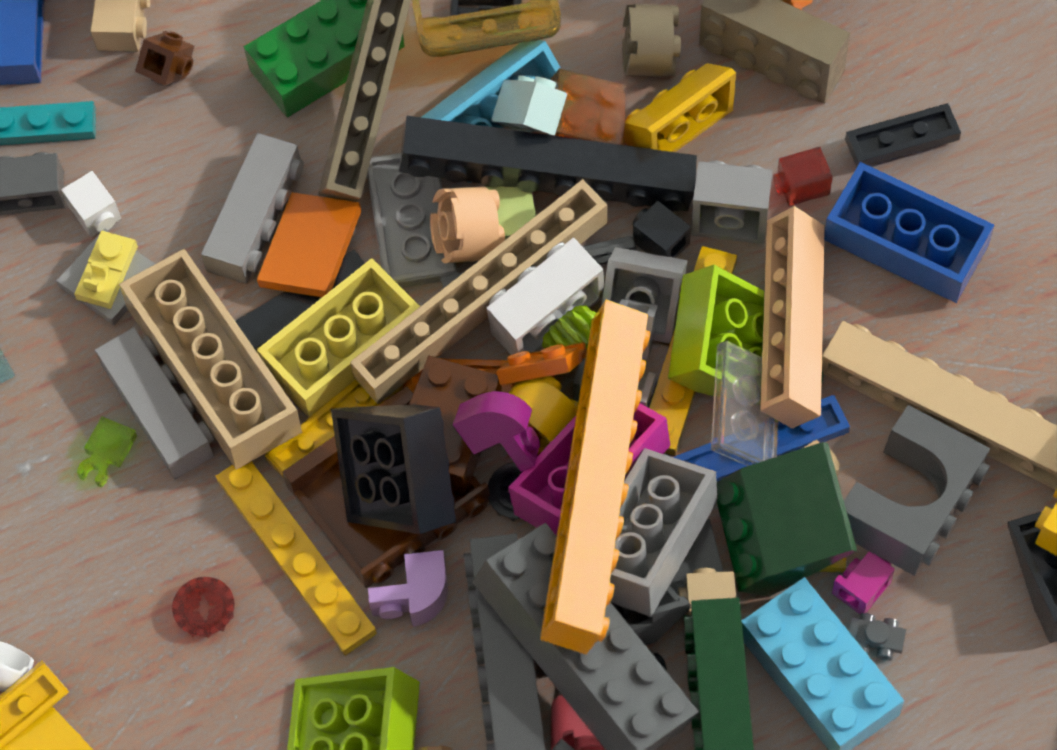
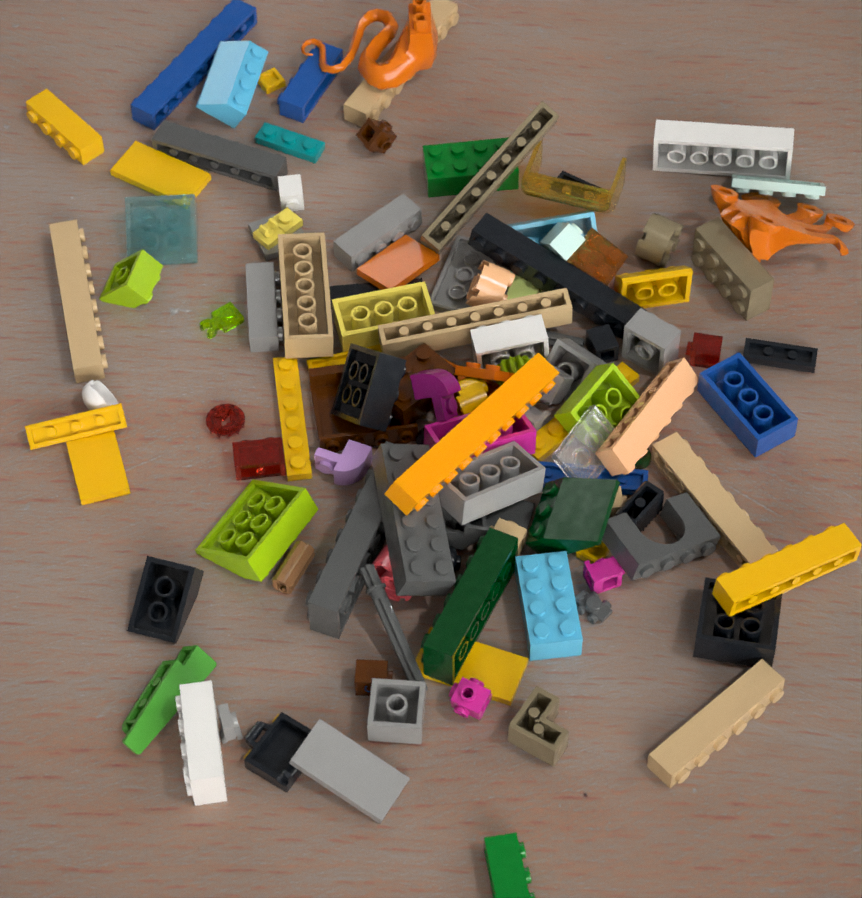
camera: 25 degrees right, 10 degrees down
(288, 643) = (259, 458): none -> clear red brick
(861, 454) = (643, 505): none -> black brick

